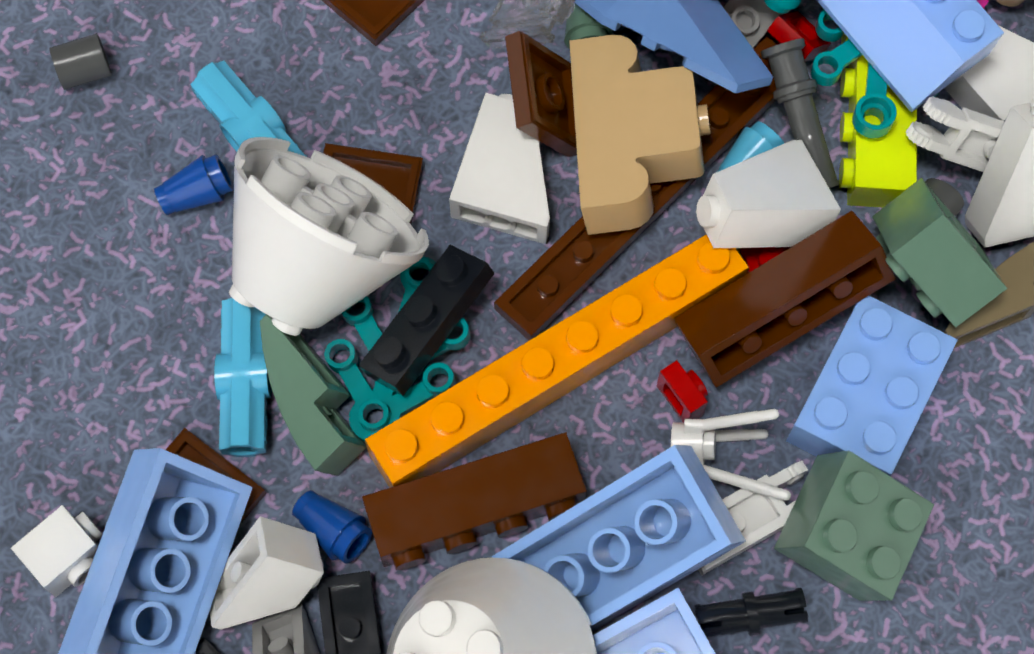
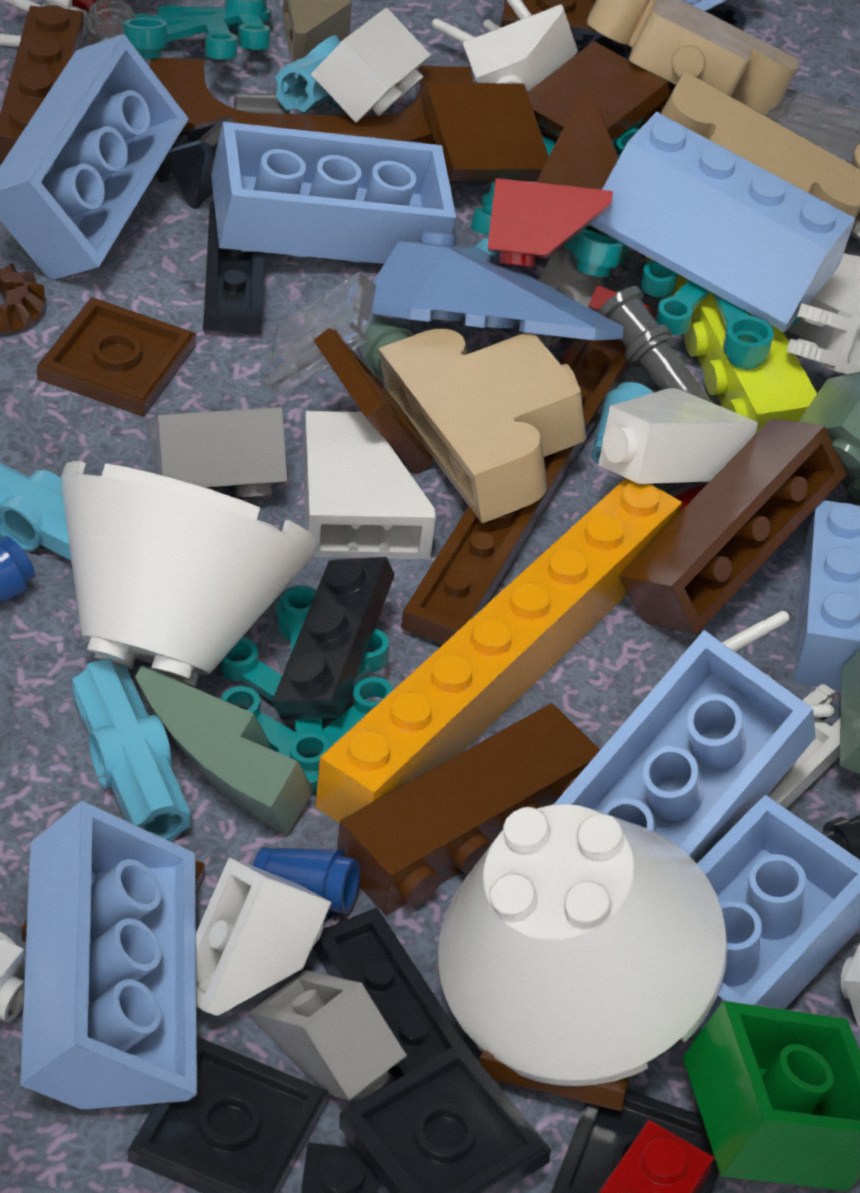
camera: 25 degrees left, 25 degrees down
(410, 103) = (221, 449): none -> light grey slope
(683, 391) = (654, 645): red plate -> none

